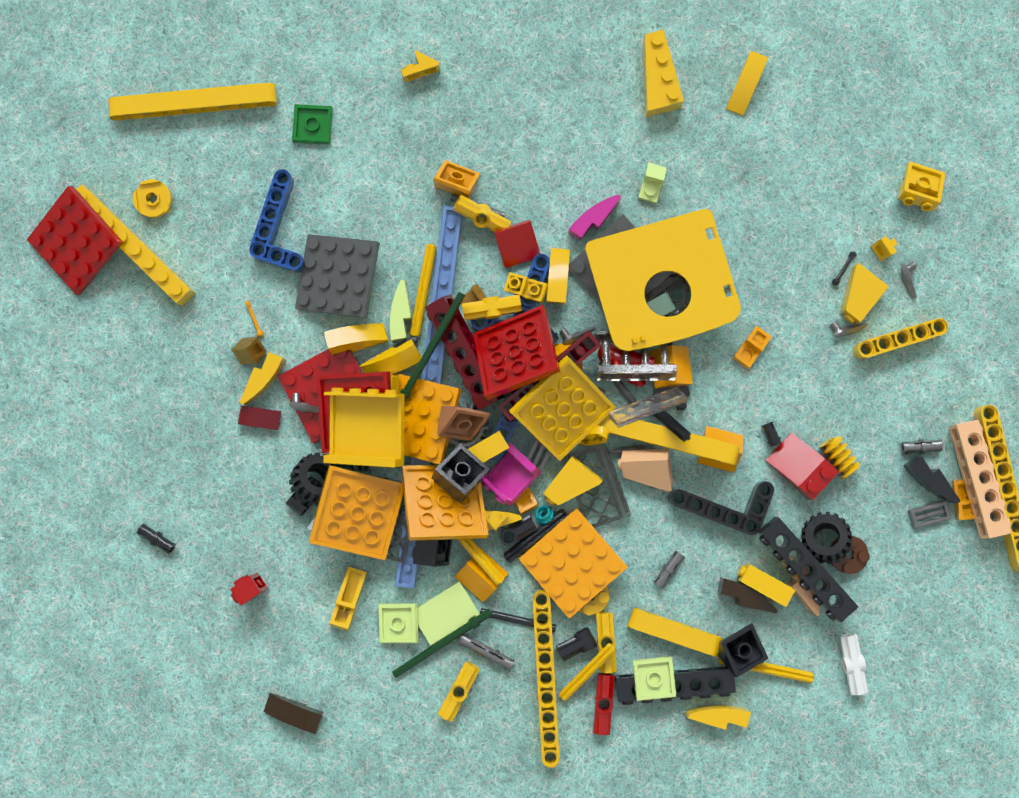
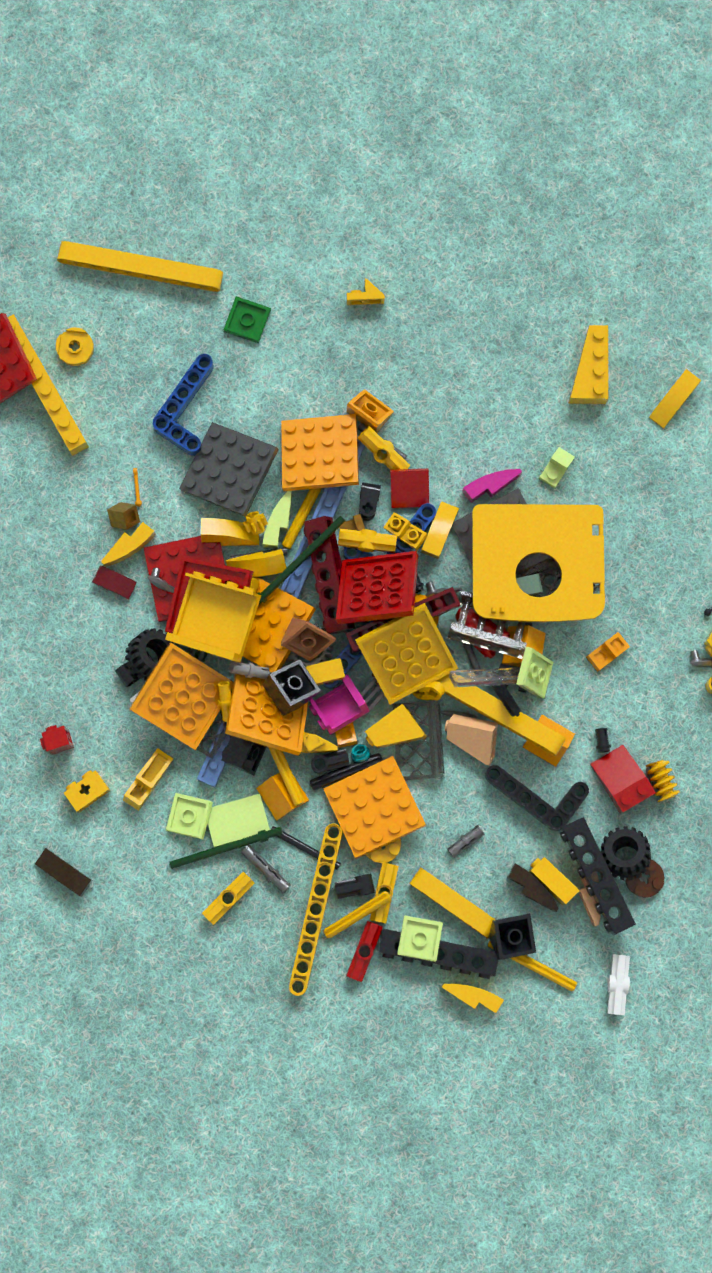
camera: 15 degrees right, 5 degrees down
(302, 622) = (81, 800): none -> yellow brick
(378, 321) = (255, 523): none -> yellow gear
(399, 502) = (225, 698): none -> yellow pin
(414, 468) = (249, 670): none -> light grey pin
(420, 234) = (319, 452): none -> light orange plate
(481, 265) = (368, 498): none -> black piece
(690, 389) = (534, 672): none -> yellowish green tile

